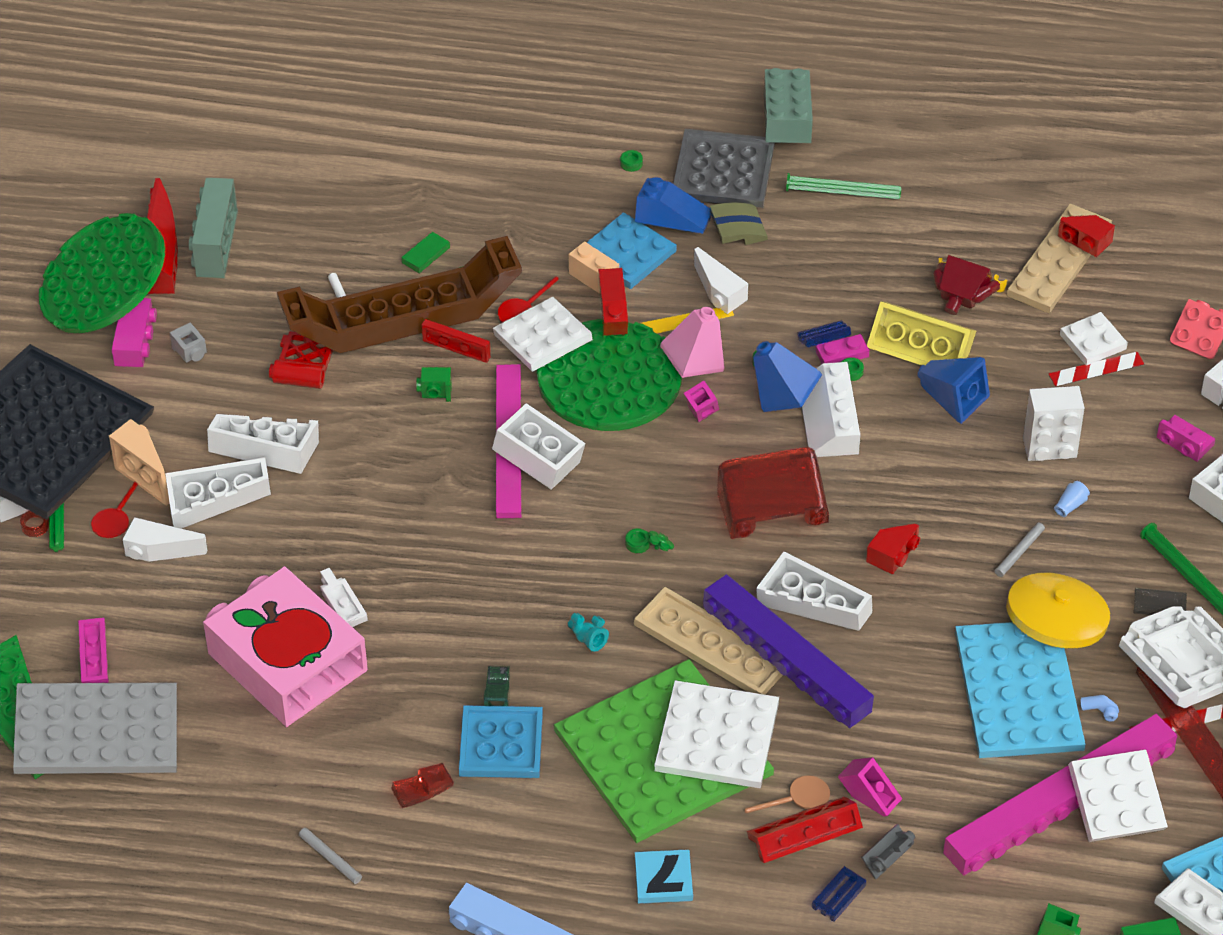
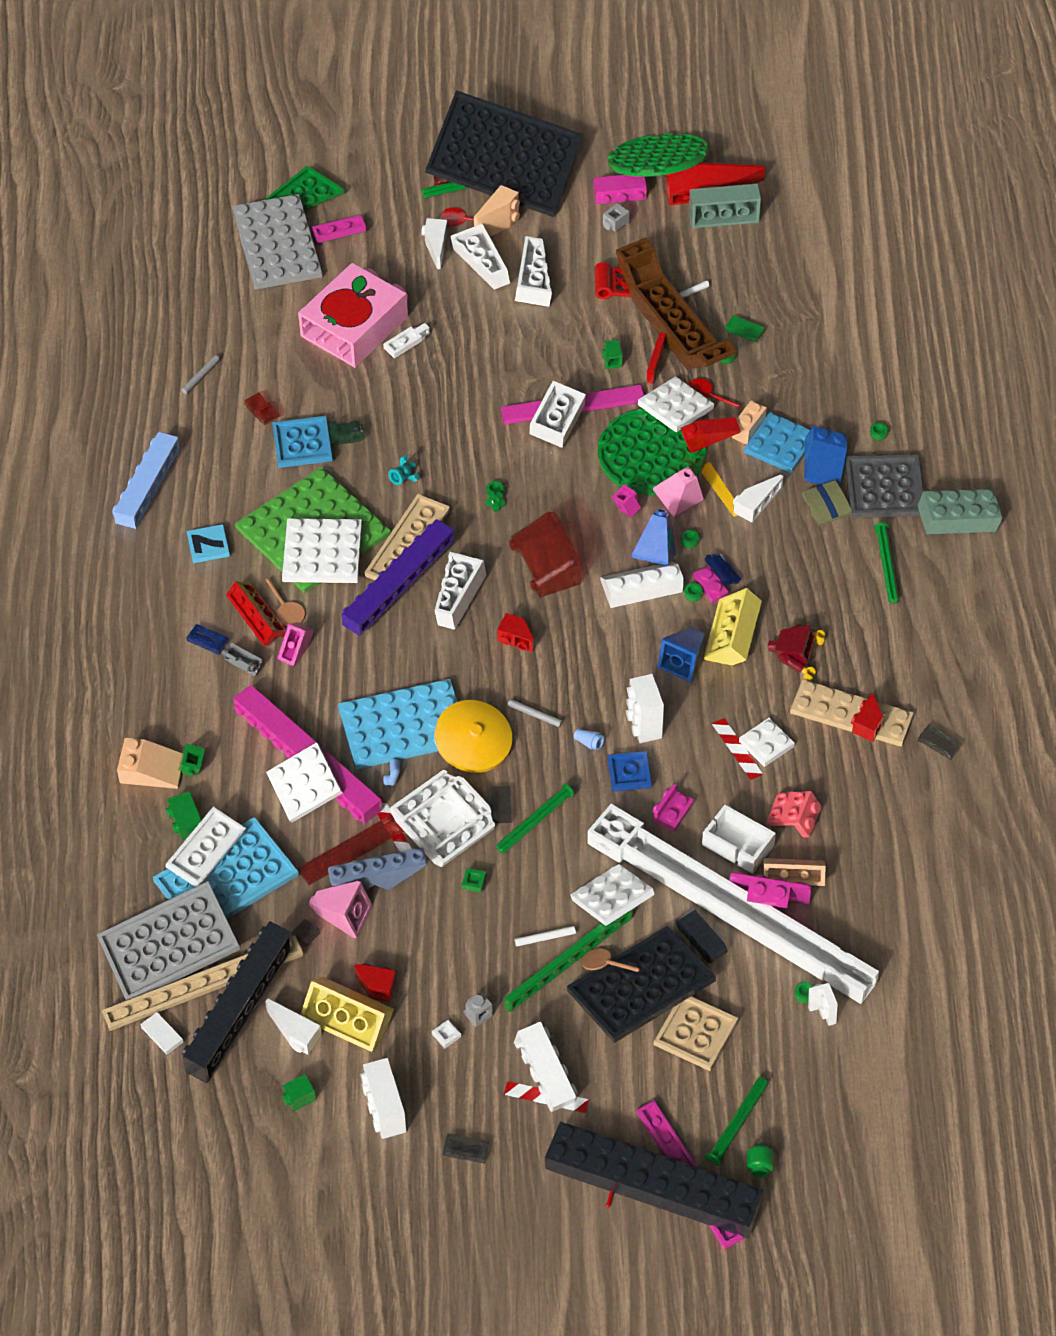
camera: 80 degrees right, 5 degrees up
(1112, 191) = (939, 742): none -> clear smoke tile
(1126, 468) = (629, 771): none -> blue plate

